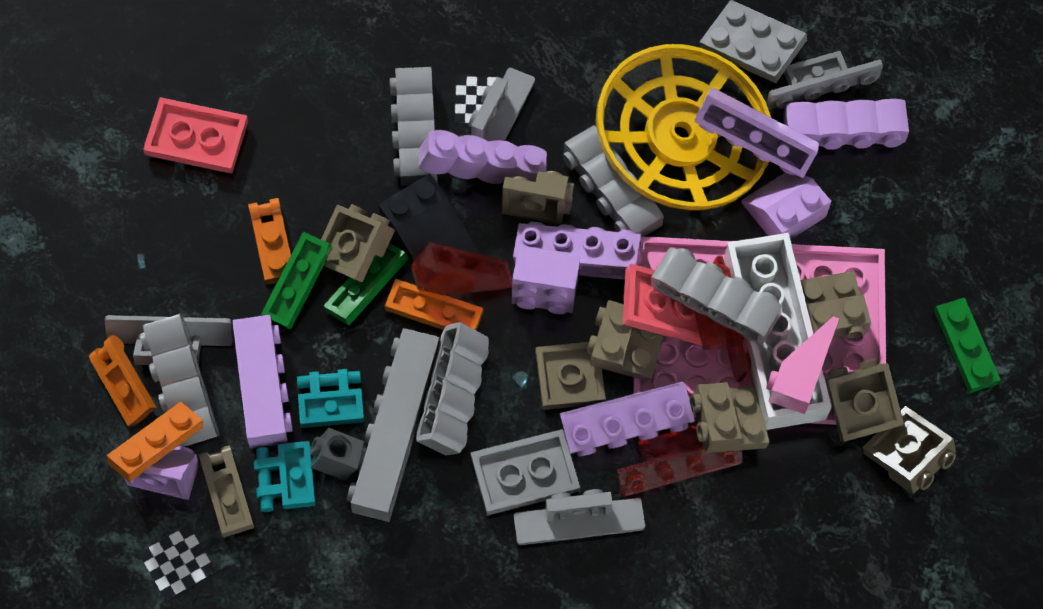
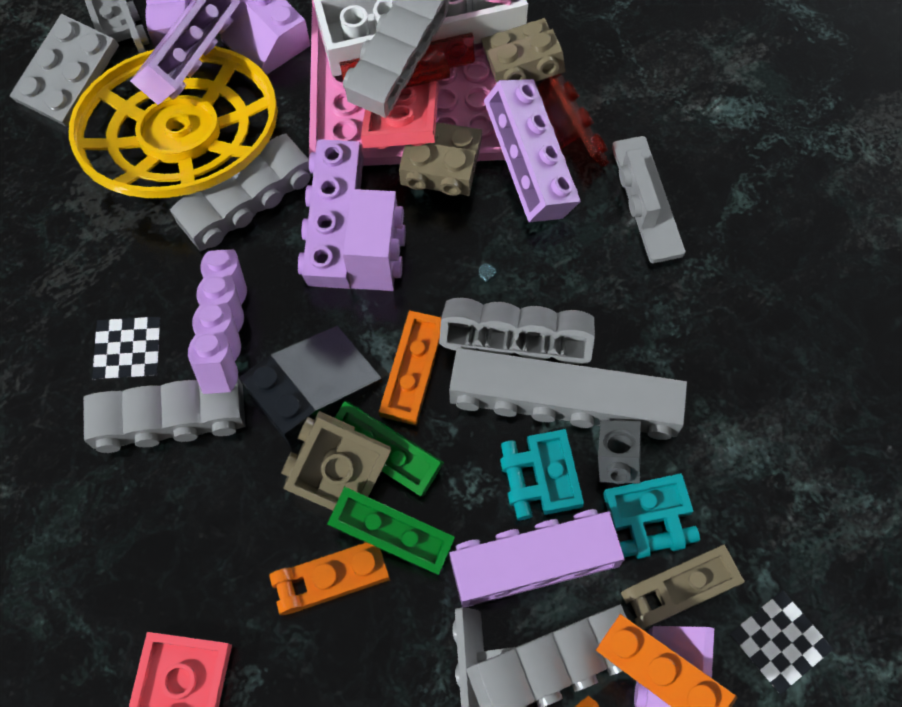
camera: 90 degrees left, 0 degrees up
(457, 271) = (367, 339): clear red slope -> none
(501, 105) = (142, 317): light grey bracket -> none
(524, 472) = (602, 253): light grey plate -> none
(539, 200) = (266, 254): dark tan plate -> none
(567, 376) = (482, 220): dark tan plate -> none

